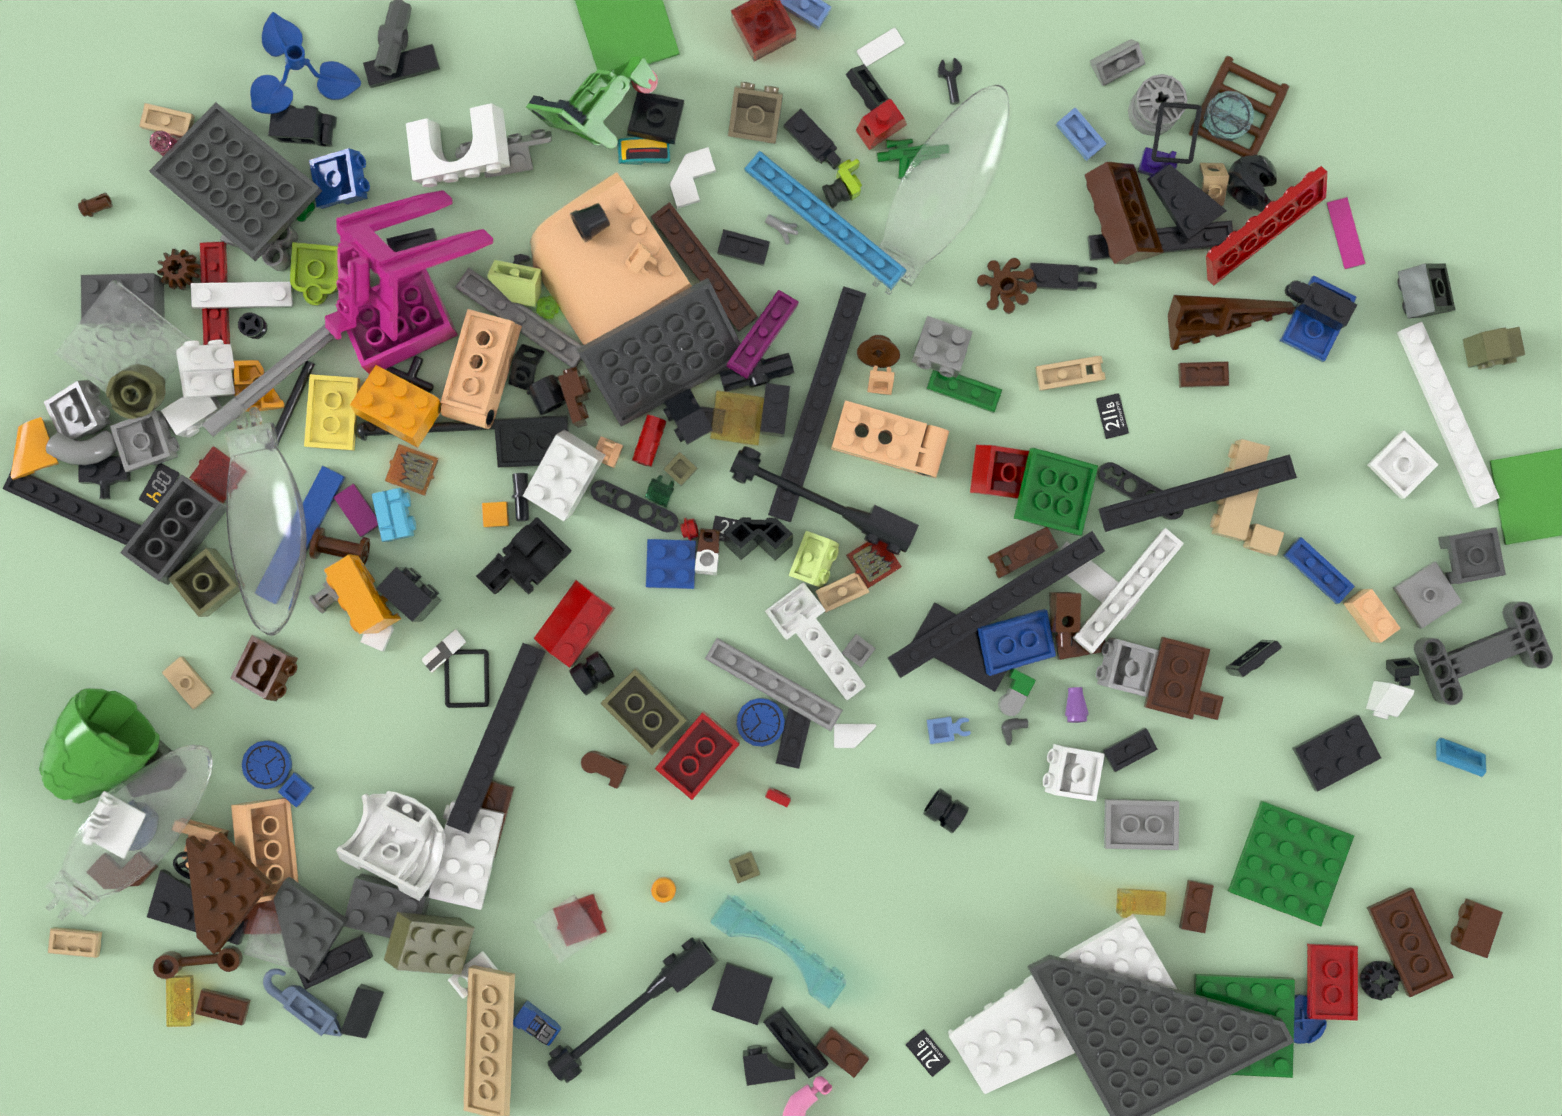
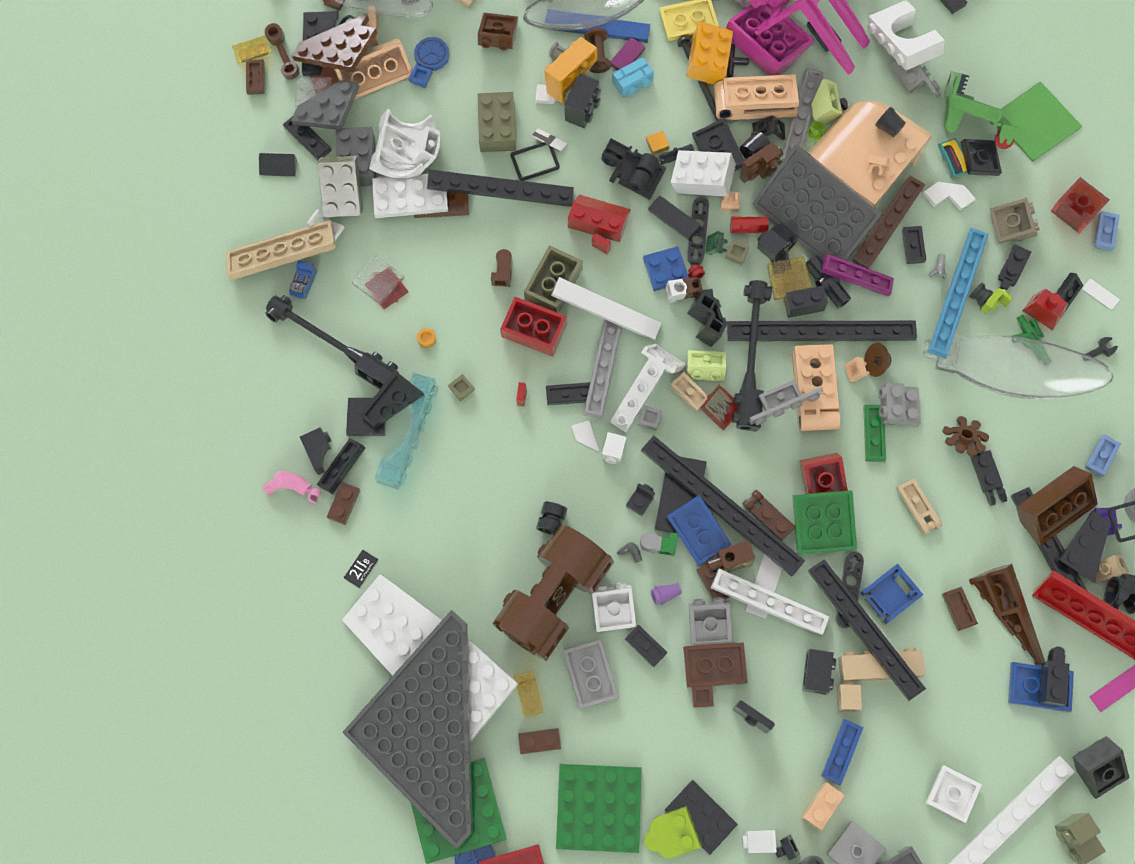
camera: 80 degrees right, 15 degrees down
(304, 1006) = (271, 126): sand blue plate -> none
(398, 712) = (496, 122): none -> olive brick
(411, 469) = (668, 81): piece -> none
(585, 679) = (569, 238): black wheel -> none
(608, 530) = (674, 217): none -> black tile
(612, 633) = (601, 243): none -> red tile
(705, 659) = (606, 309): none -> white tile
(736, 960) = (390, 400): none -> black wing
(760, 722) = (572, 366): blue tile -> none
(883, 708) = (613, 448): none -> white brick
(896, 488) = (781, 399): none -> light grey bracket
(943, 729) = (613, 498): medium blue plate -> none
(954, 696) = (641, 499): none -> black bracket
(1066, 877) = (570, 563): none -> reddish brown cylinder
(1112, 416) = (898, 551): black sticker -> none
(1162, 449) = (887, 595): none -> blue container
(1223, 563) = (818, 671): none -> black brick
(1348, 791) = (672, 834): none -> lime plate

